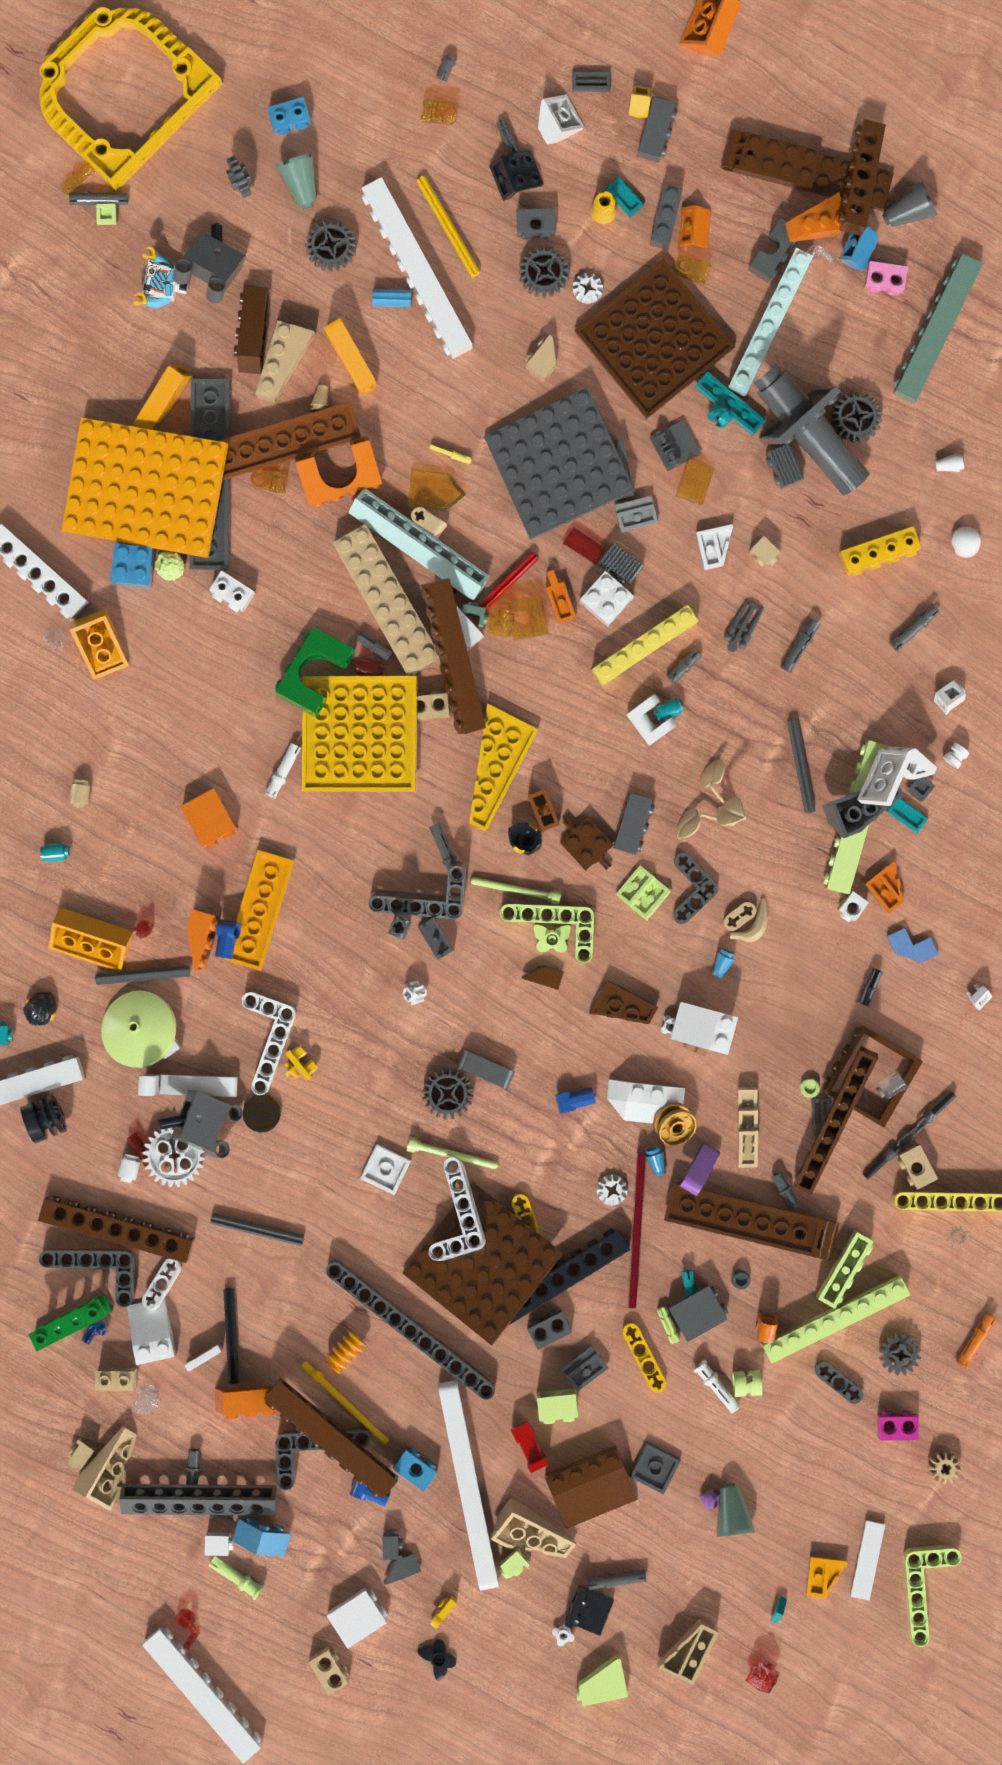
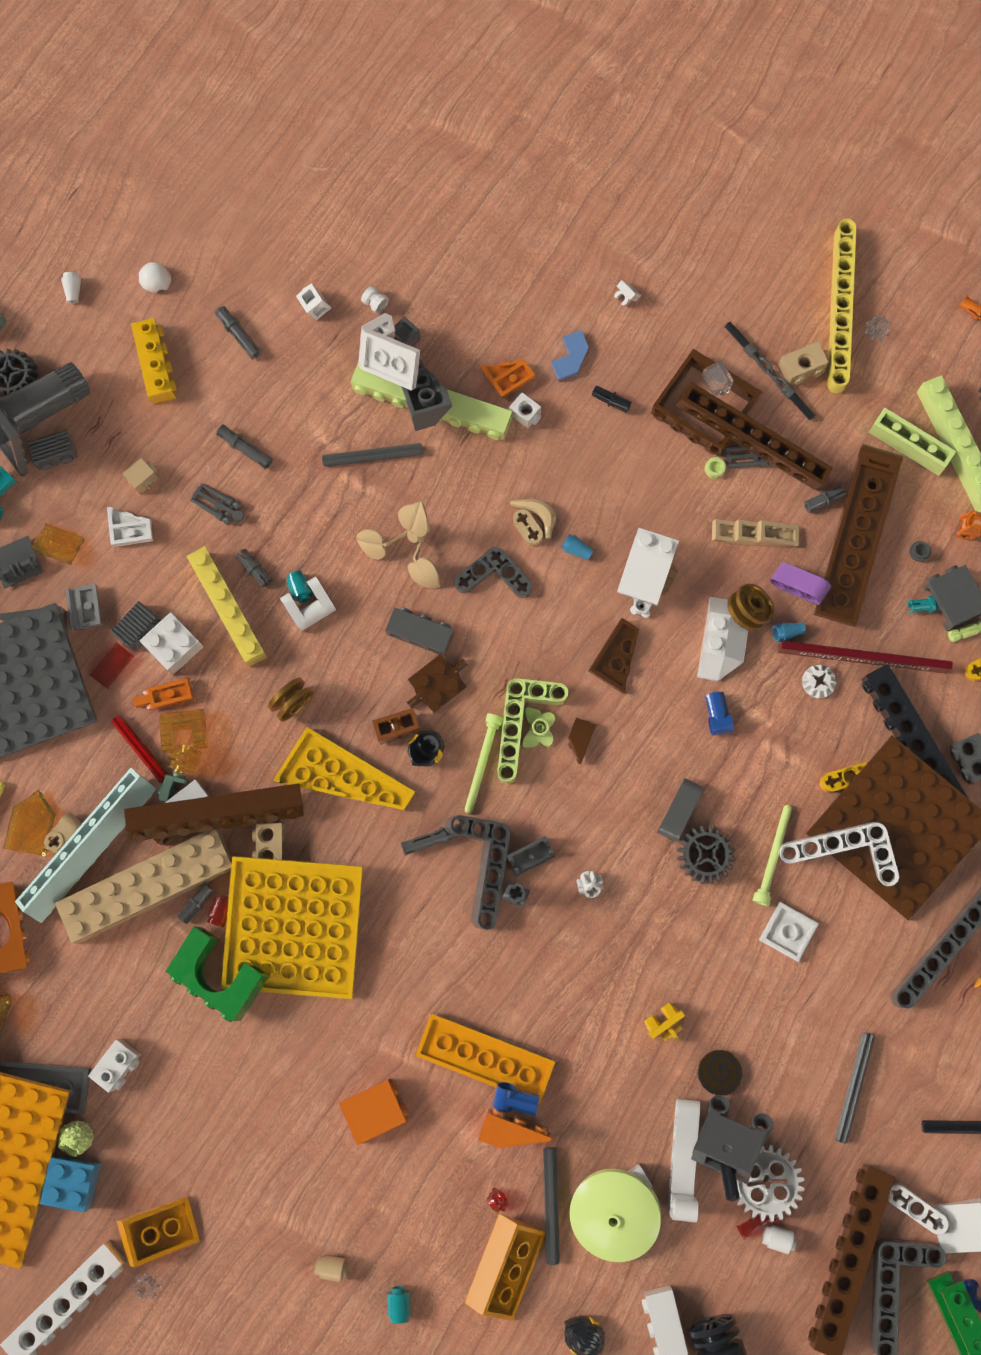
camera: 80 degrees left, 10 degrees down
(266, 1057) = (635, 1052): white beam -> none
(282, 771) = (334, 1024): white pin -> none
(561, 713) = (290, 699): none -> pearl gold wheel
(643, 893) = (495, 626): yellowish green slope -> none
(907, 815) = (435, 350): teal tile -> none

